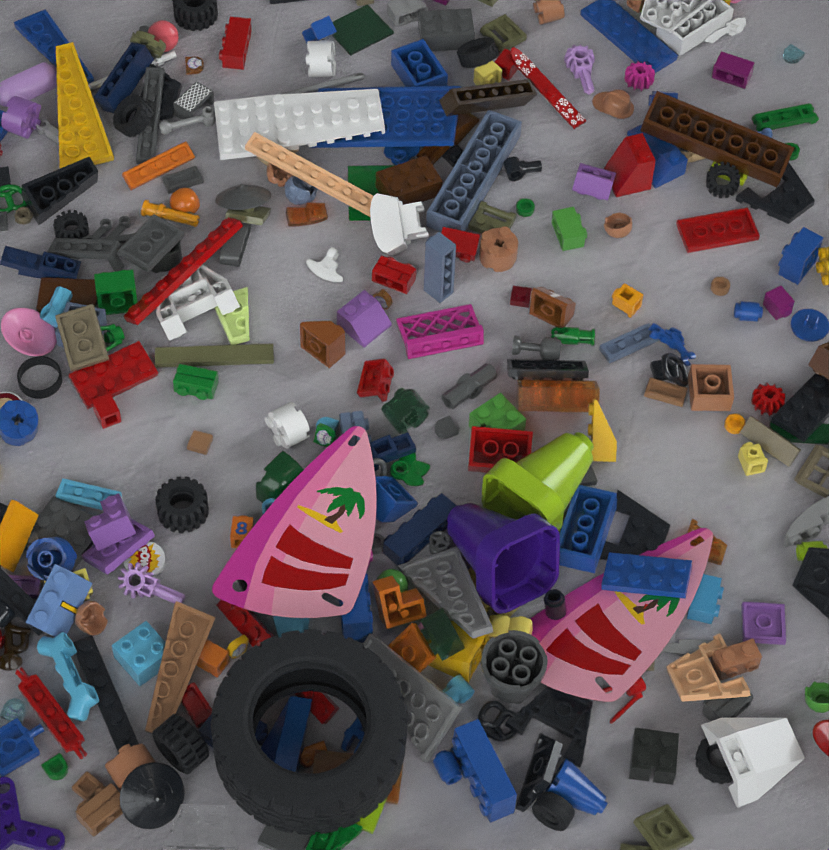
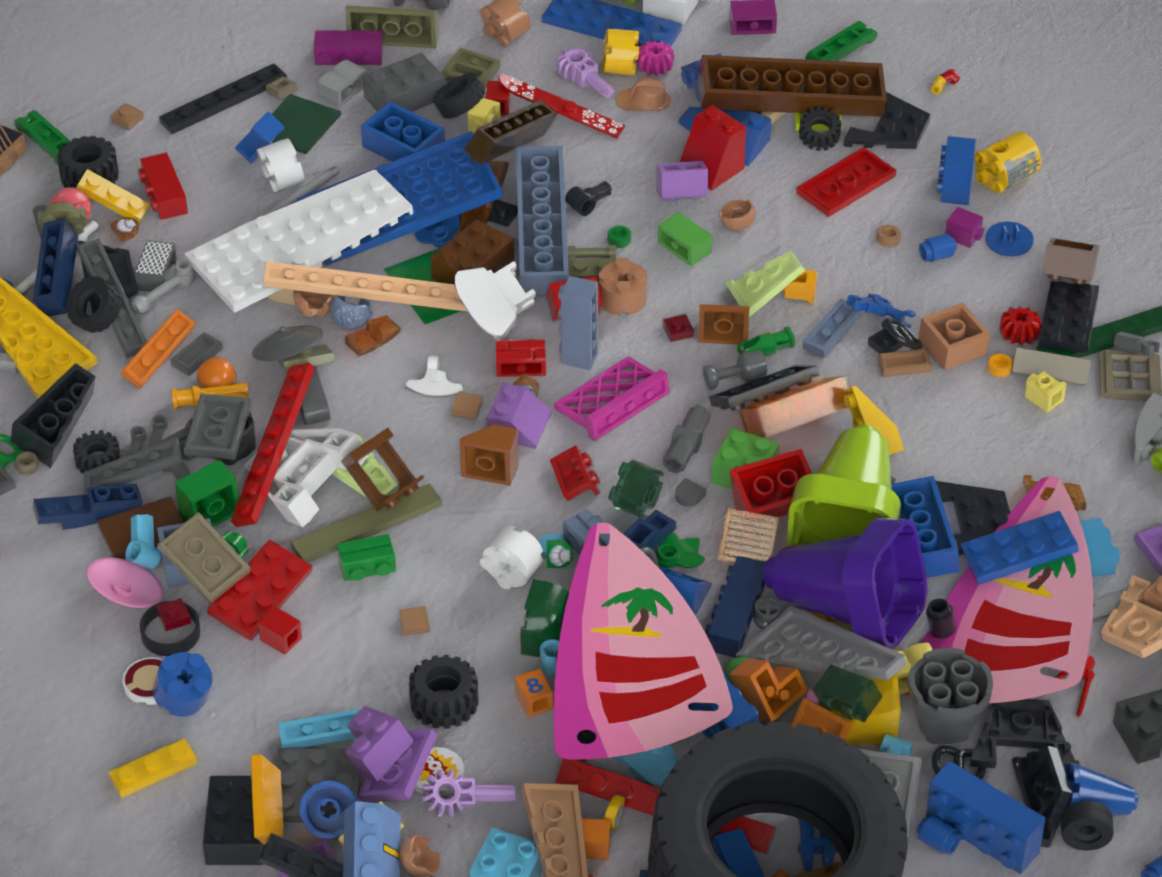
camera: 25 degrees left, 10 degrees down
(43, 369) = (173, 614): none -> dark red plate
(196, 38) = (112, 196): none -> yellow plate
(256, 334) = (407, 482): none -> reddish brown panel
(336, 295) = (467, 405): none -> medium nougat tile
(459, 481) = (747, 536): none -> clear orange tile
(599, 288) = (762, 285): none -> yellowish green wing
(614, 61) = (620, 52): none -> yellow brick

